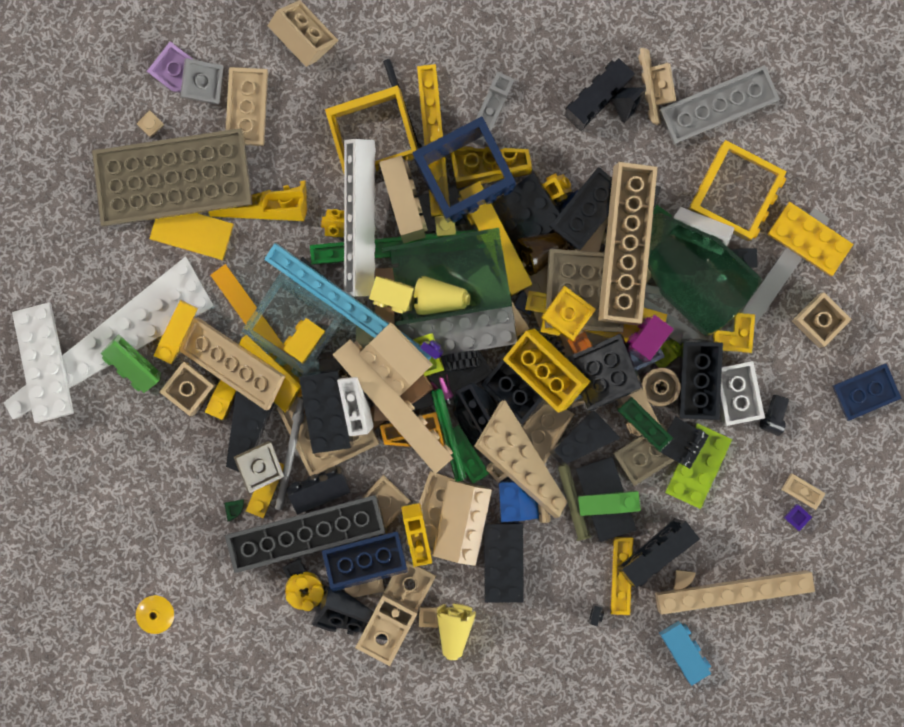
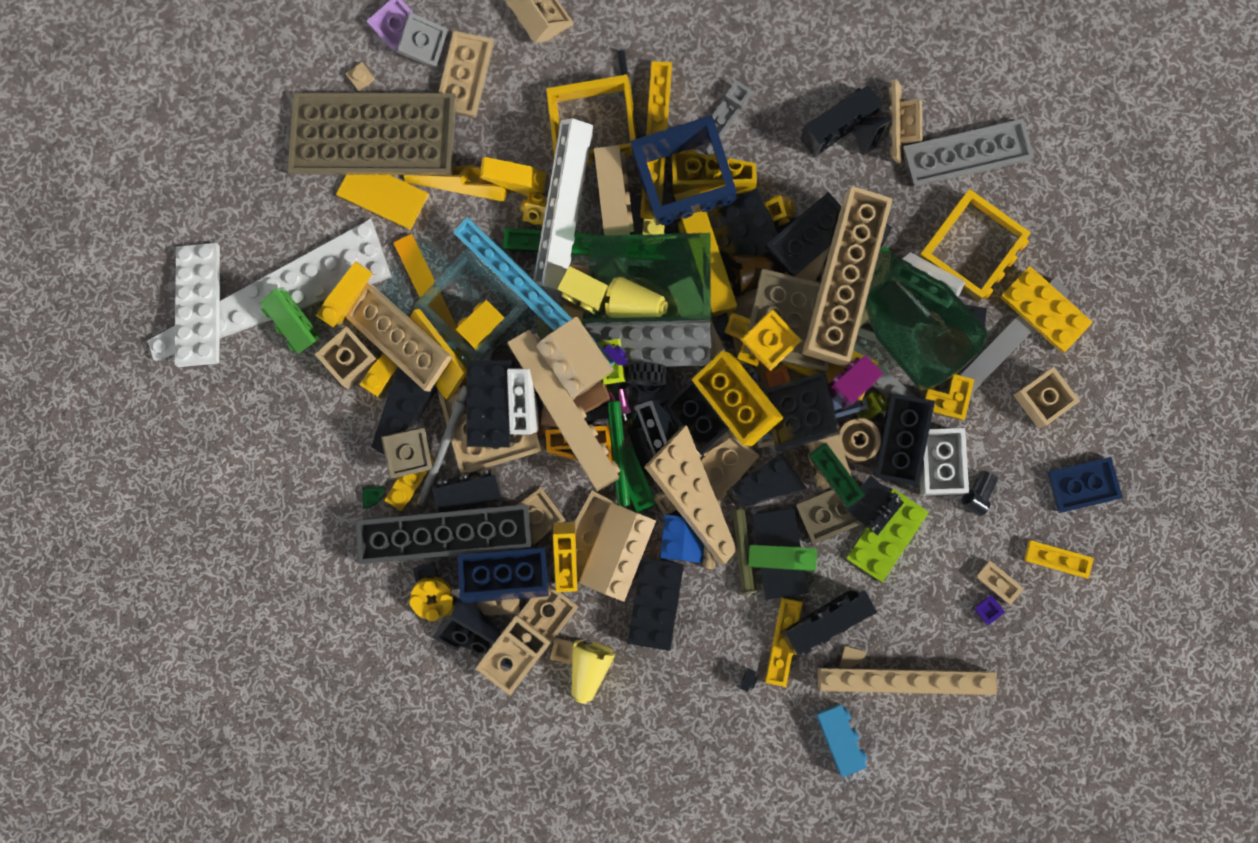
camera: 15 degrees right, 5 degrees down
(161, 607) = (274, 599): yellow dish -> none
(309, 197) = (513, 176): none -> yellow slope
(852, 462) = (1058, 559): none -> yellow plate

